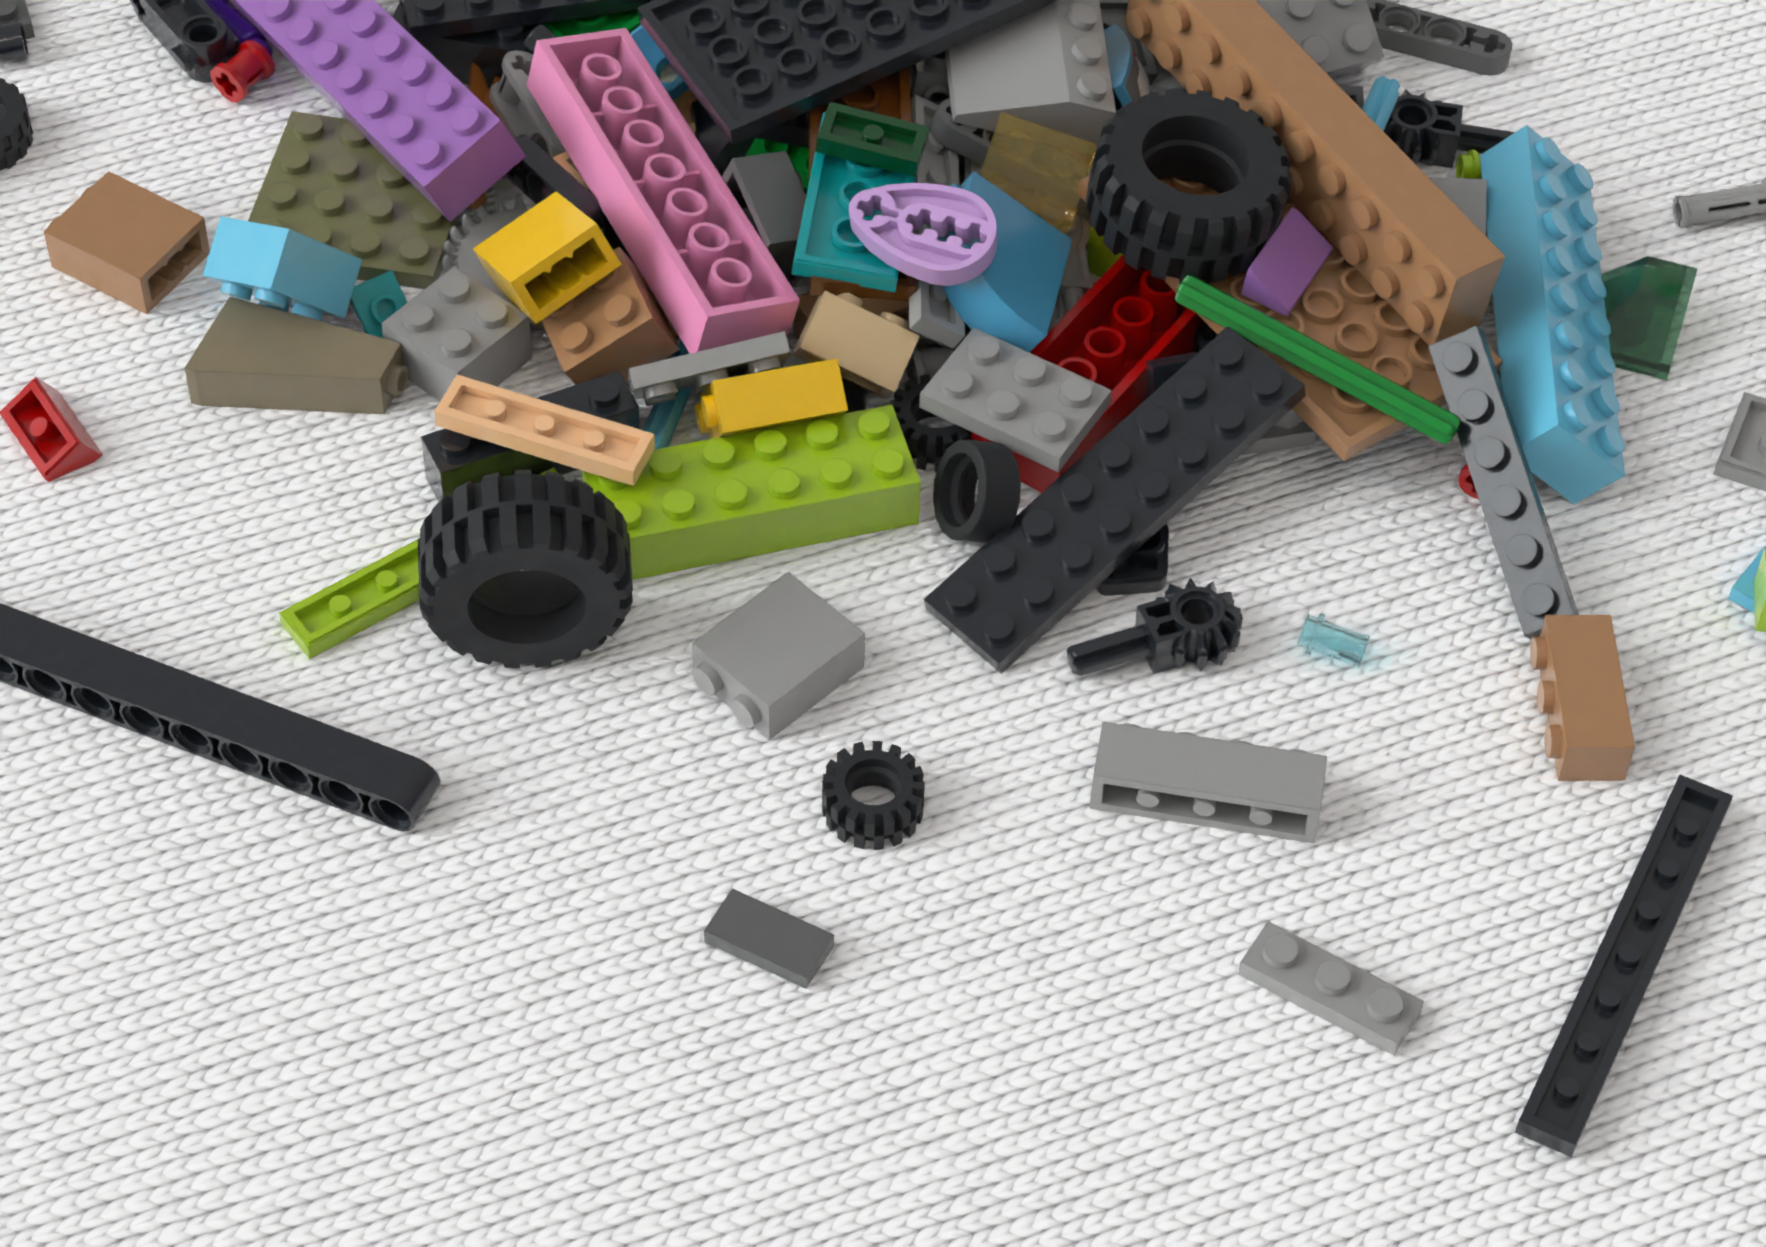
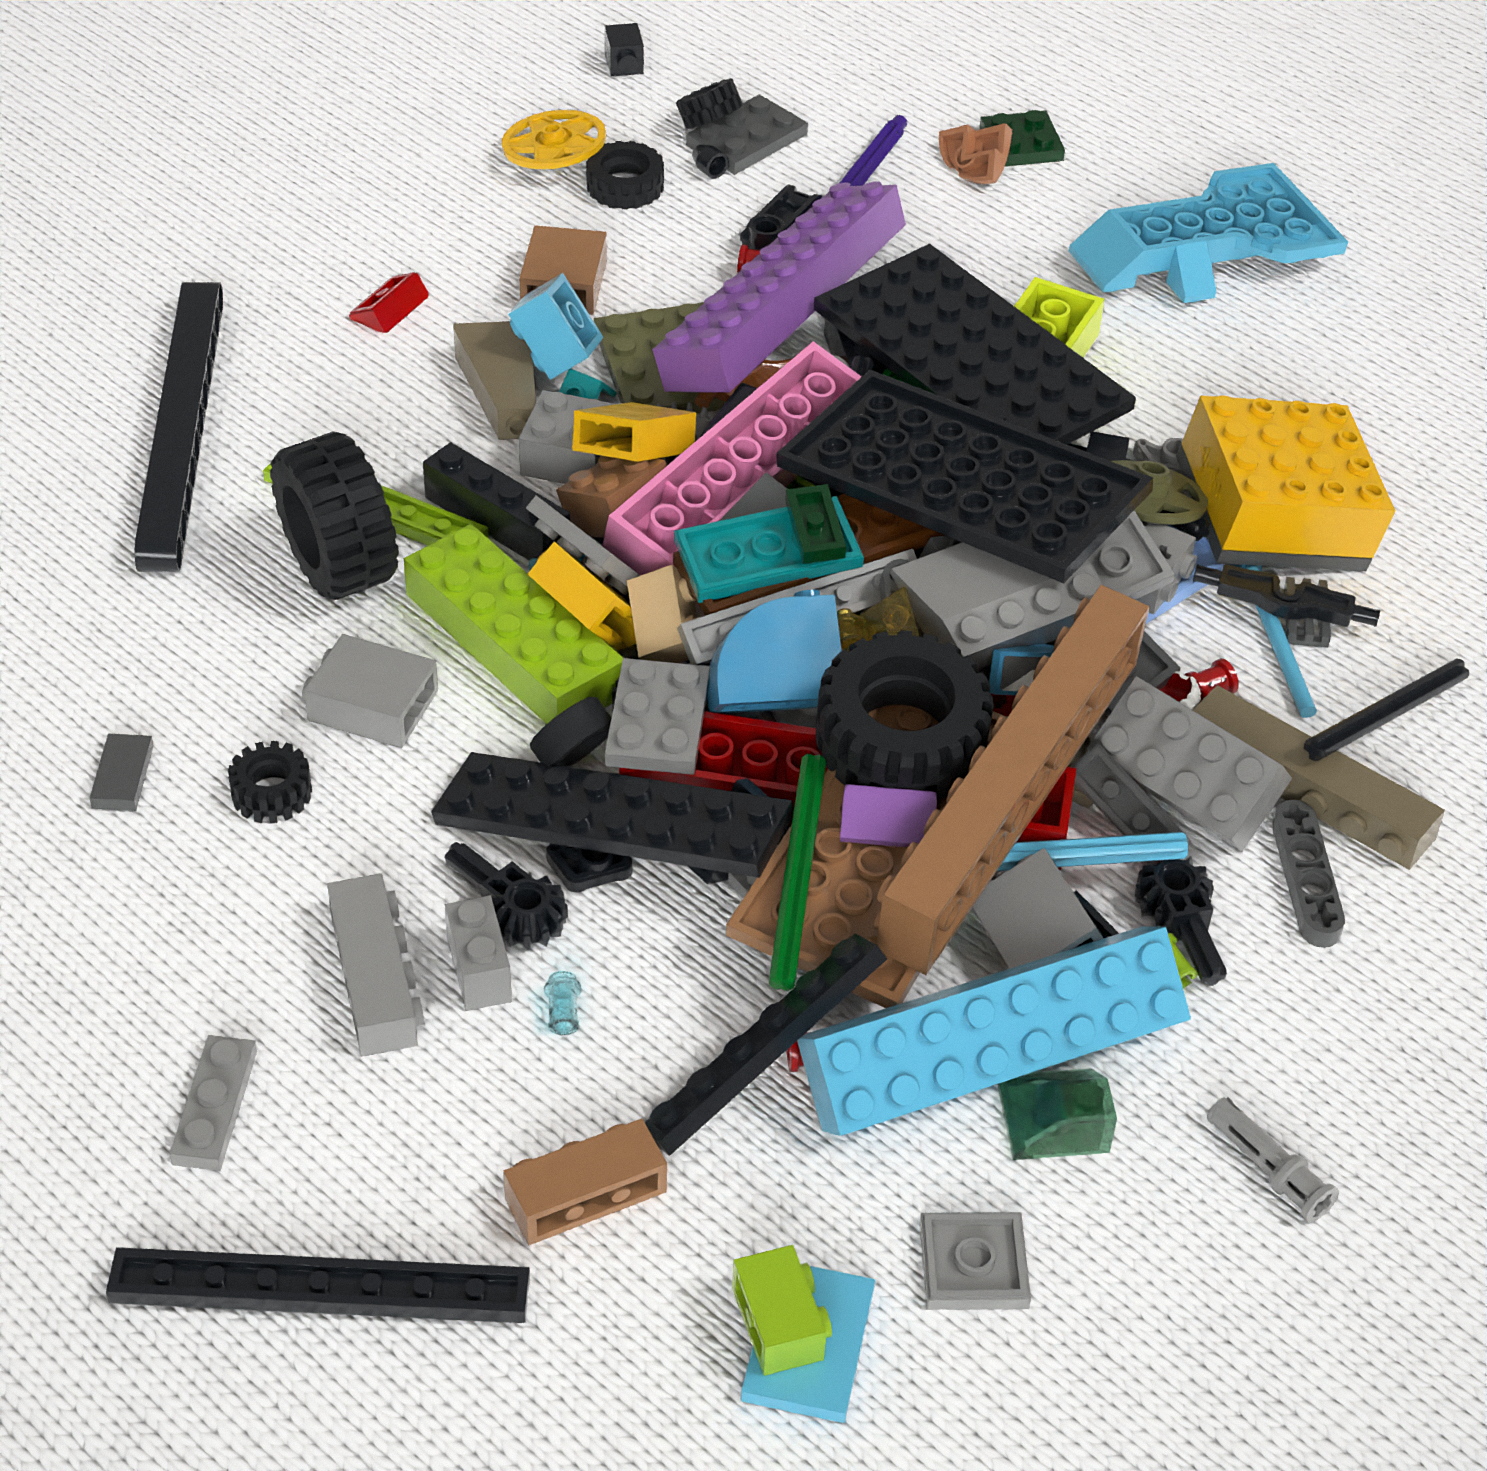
camera: 65 degrees right, 5 degrees down
(545, 430) = (470, 486): light nougat plate -> none
(924, 256) = (720, 578): lavender piece -> none
(1242, 683) = (478, 953): none -> light grey brick

